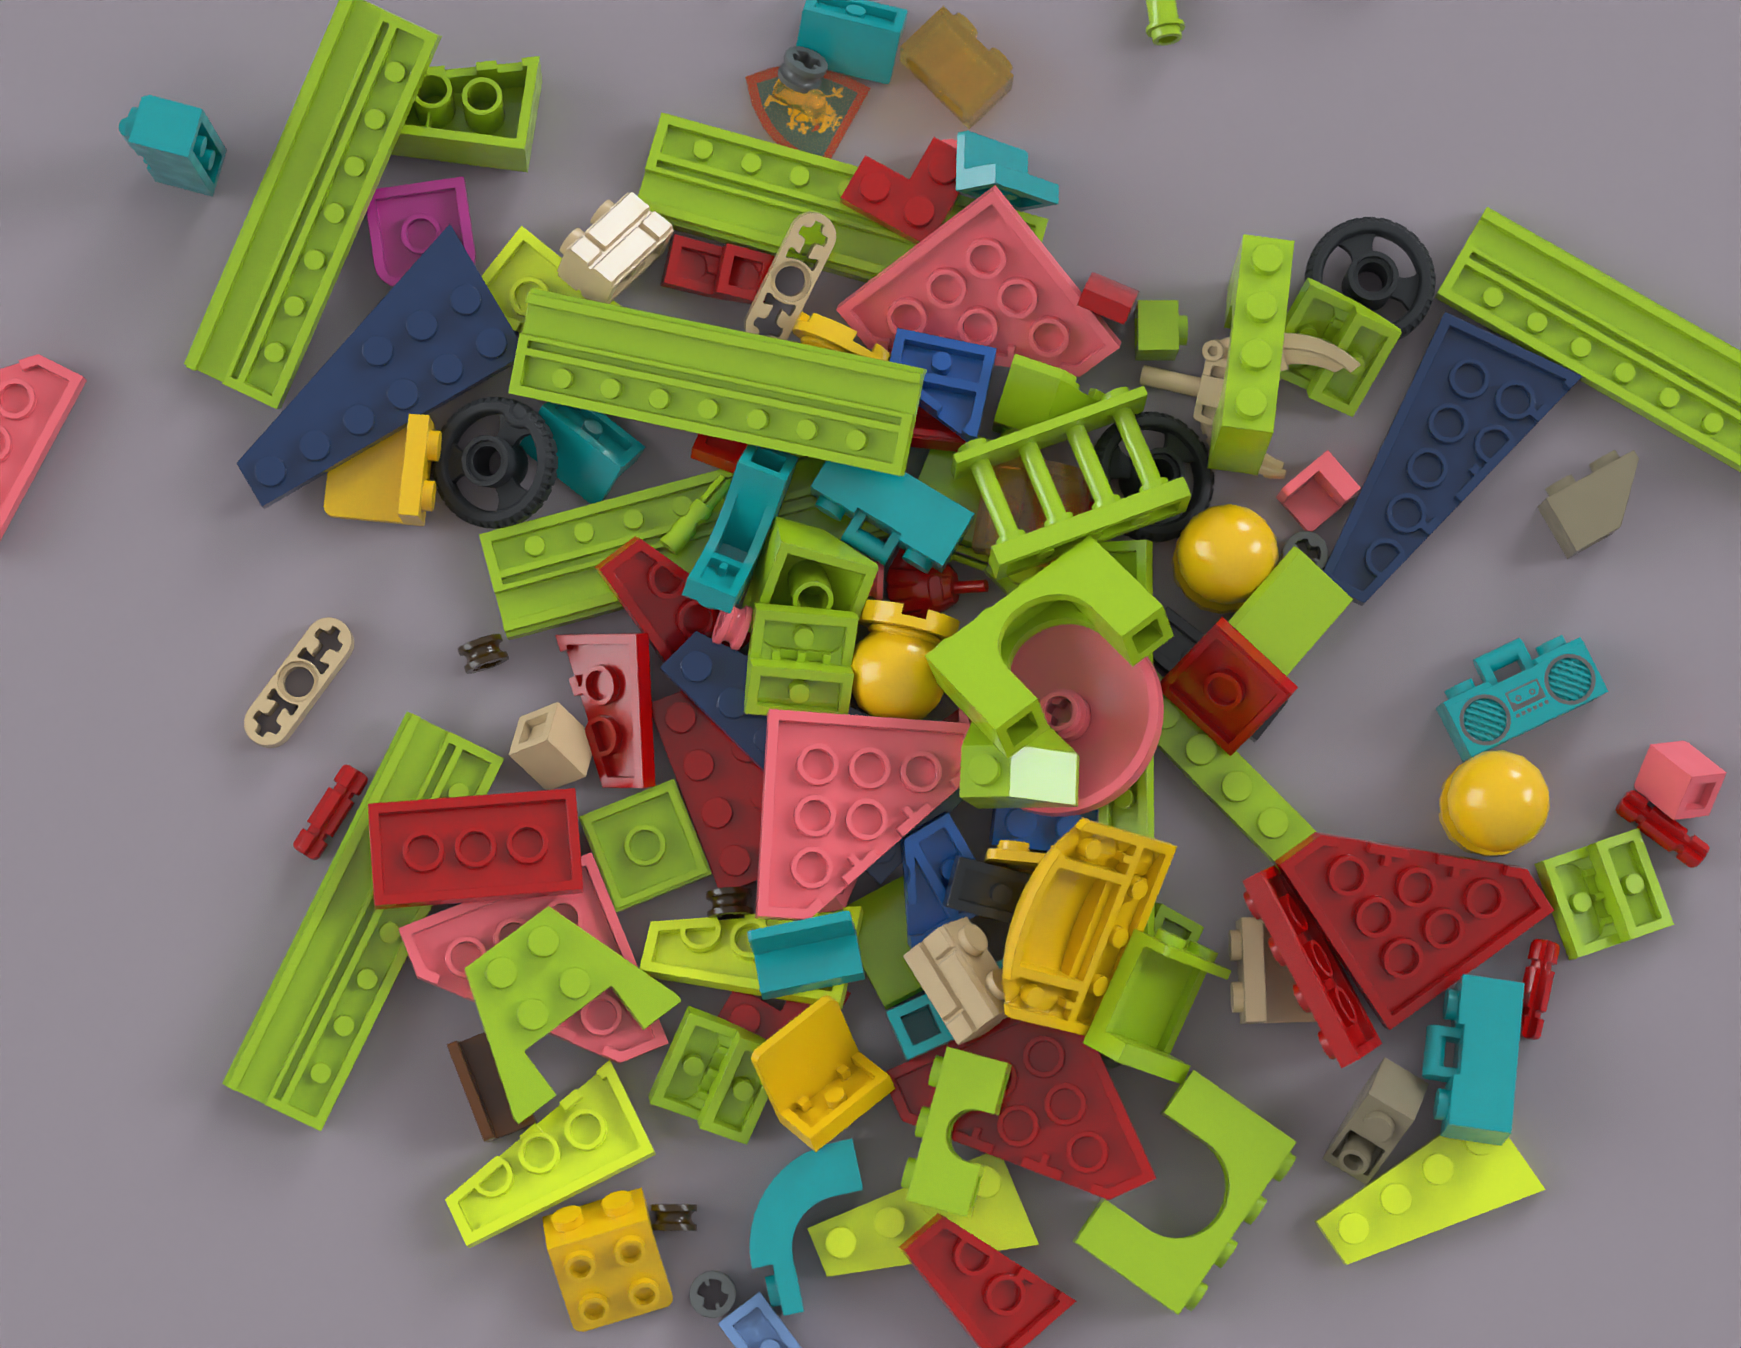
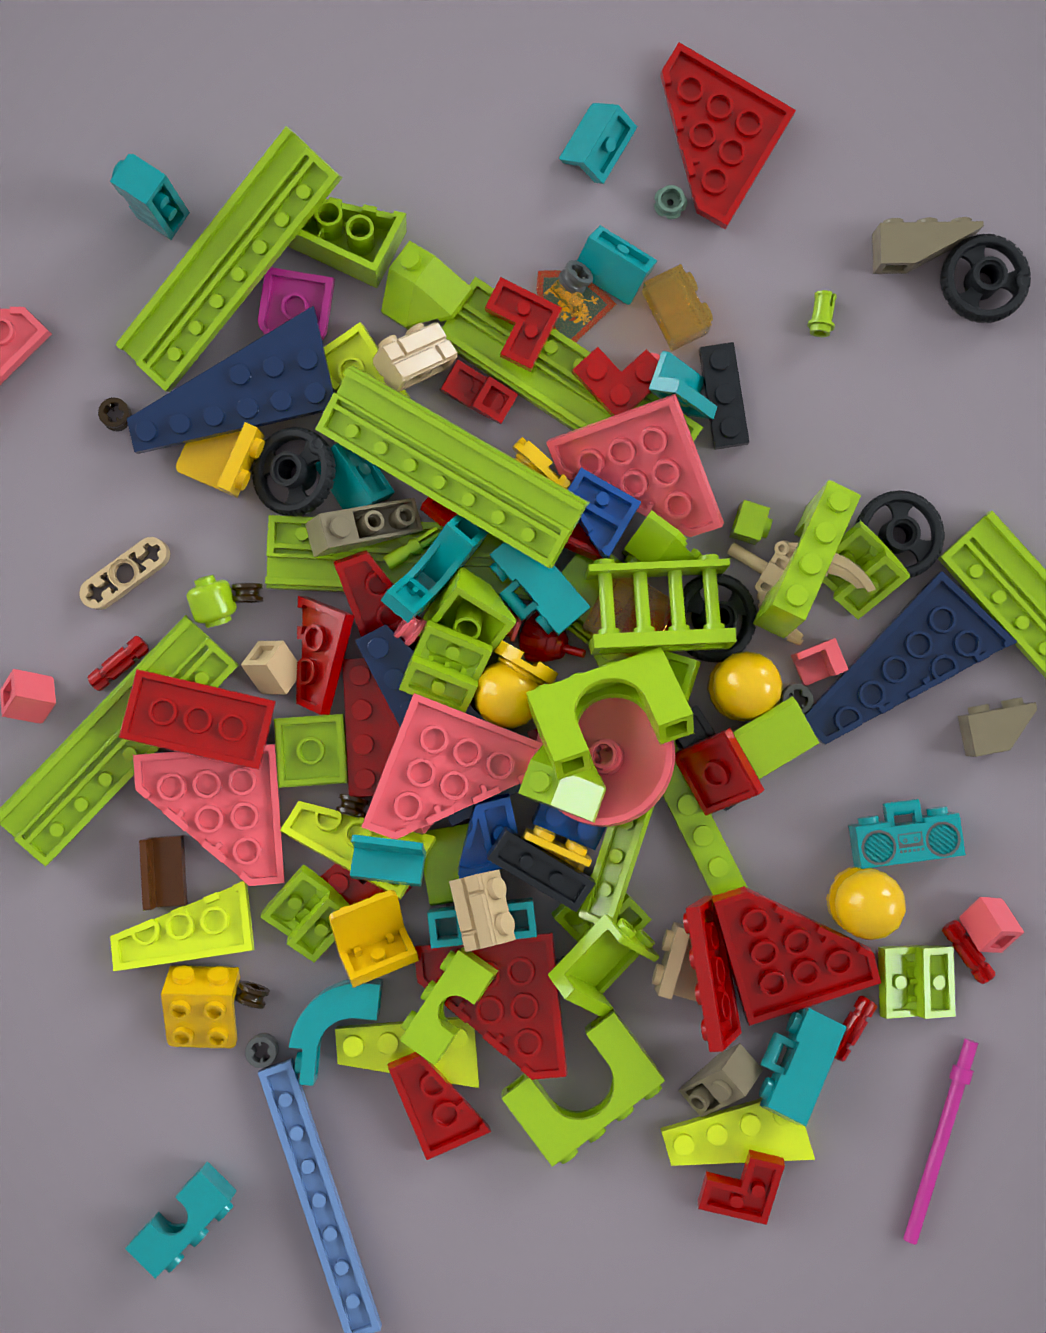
camera: 20 degrees right, 5 degrees up
(201, 474) = (108, 404): none -> dark brown bush
(217, 899) = (27, 696): none -> coral panel
(437, 680) = (211, 601): none -> lime head
(538, 983) = (211, 819): lime wing -> none
(593, 153) = (422, 288): none -> lime slope
(618, 506) = (362, 526): none -> dark tan slope
(762, 146) = (532, 321): none -> red plate
(819, 252) = (545, 400): tan beam -> none
(1061, 160) = (724, 390): none -> black plate
(1078, 922) = (568, 901): yellow slope -> none
(1108, 298) = (725, 492): red slope -> none
(1468, 1273) = (746, 1197): none -> red plate
(1710, 1006) = (961, 1076): none -> dark pink bar

